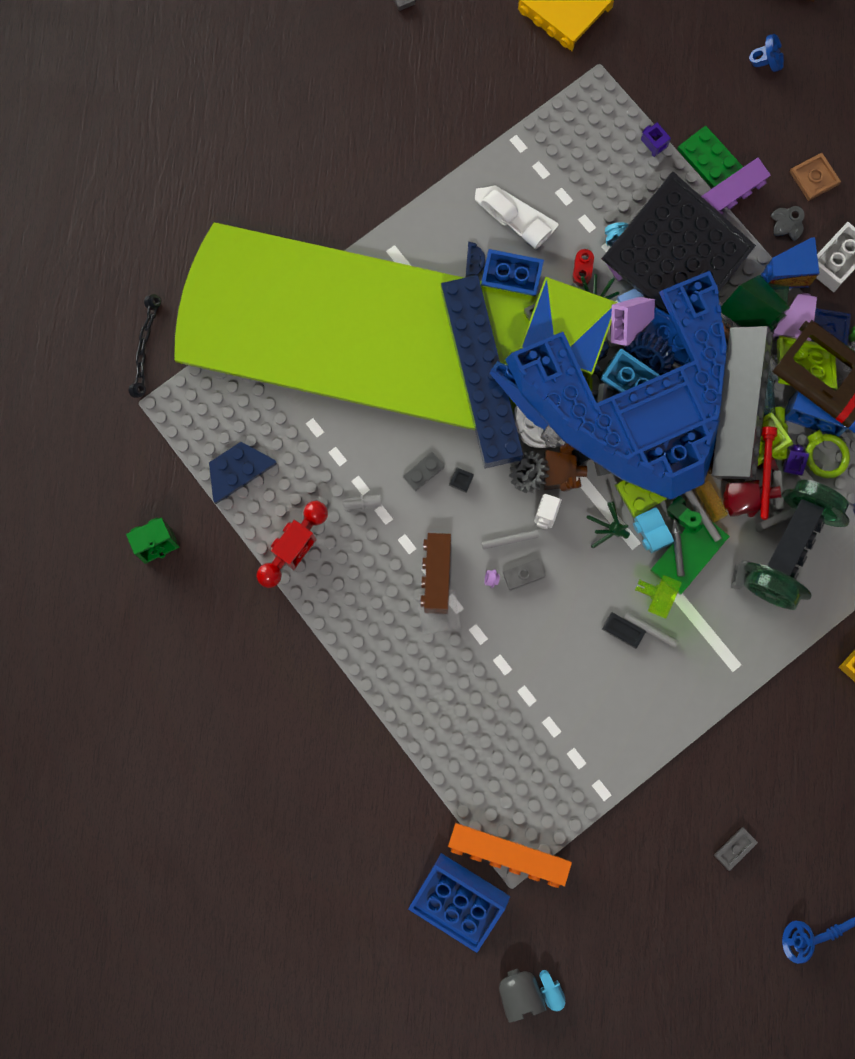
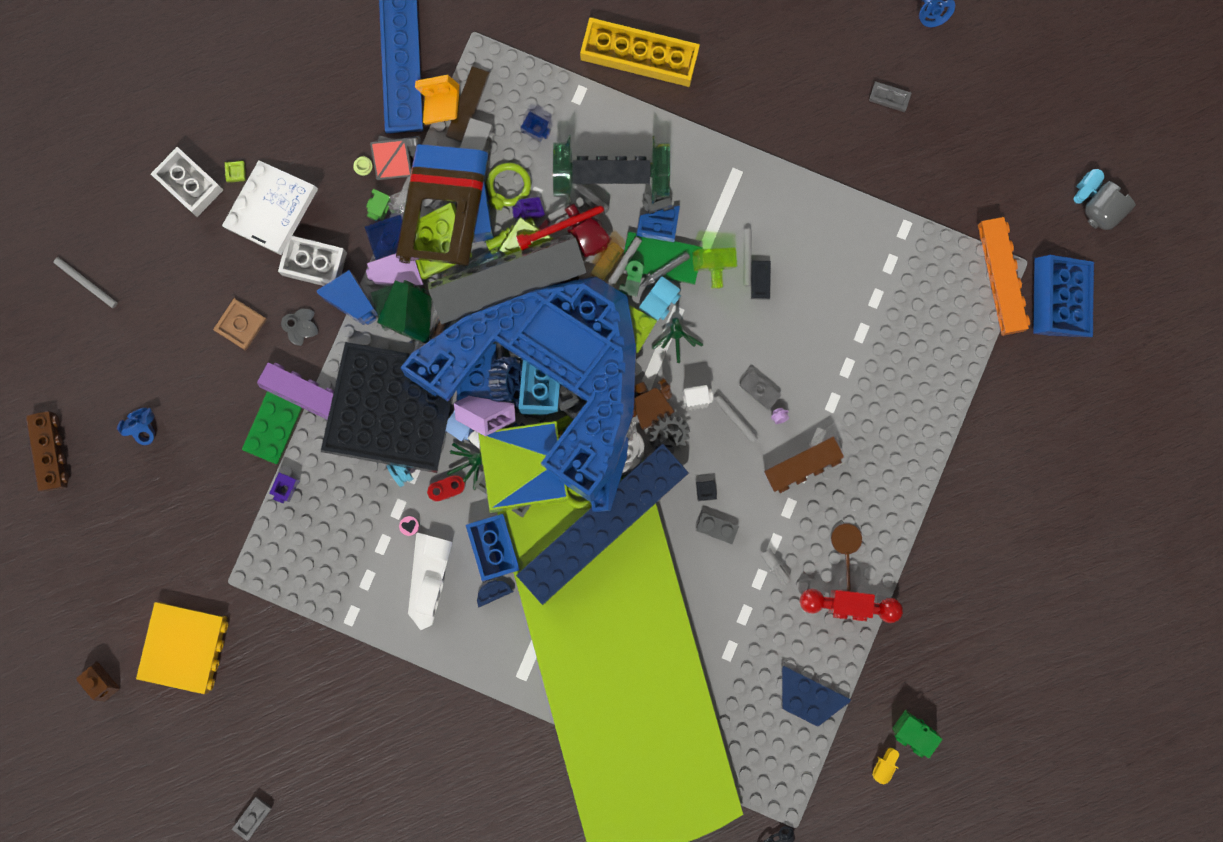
camera: 120 degrees left, 5 degrees up
(142, 501) = (886, 767): none -> yellow arm
(350, 577) = (846, 540): none -> reddish brown piece
(567, 222) = (409, 526): none -> bright pink tile
(722, 566) = (659, 225): none -> blue wing

